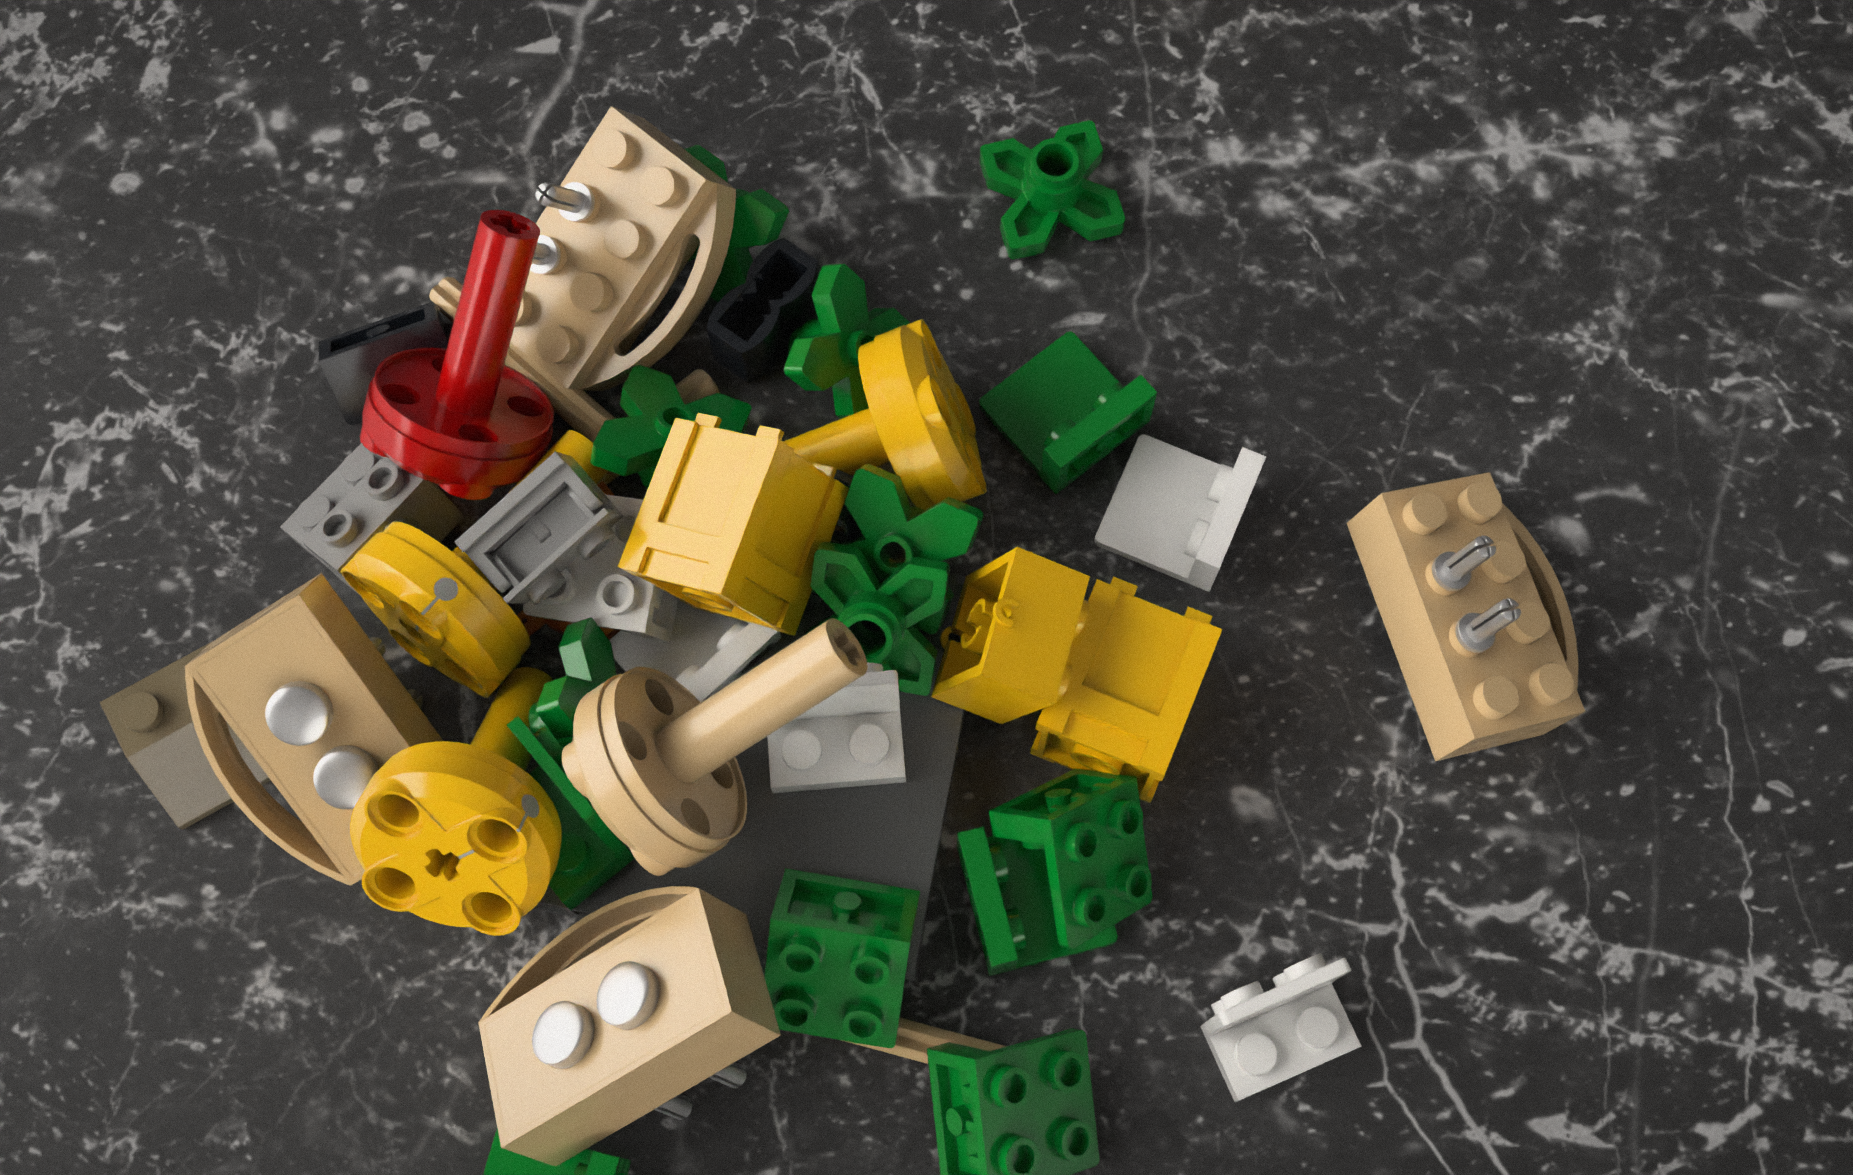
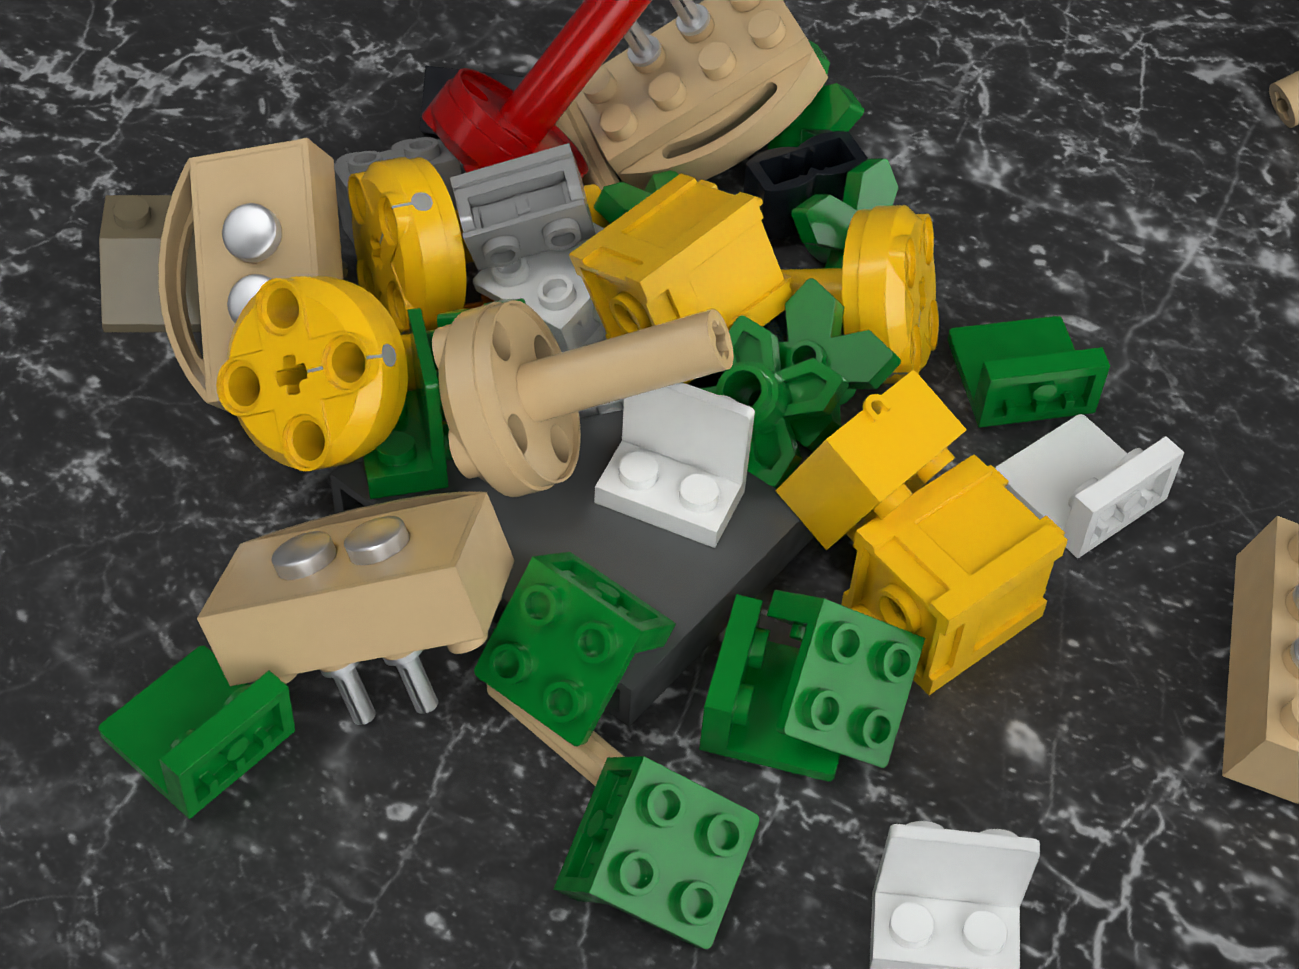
camera: 25 degrees right, 20 degrees down
(1051, 189) = (1102, 208): green plant -> none

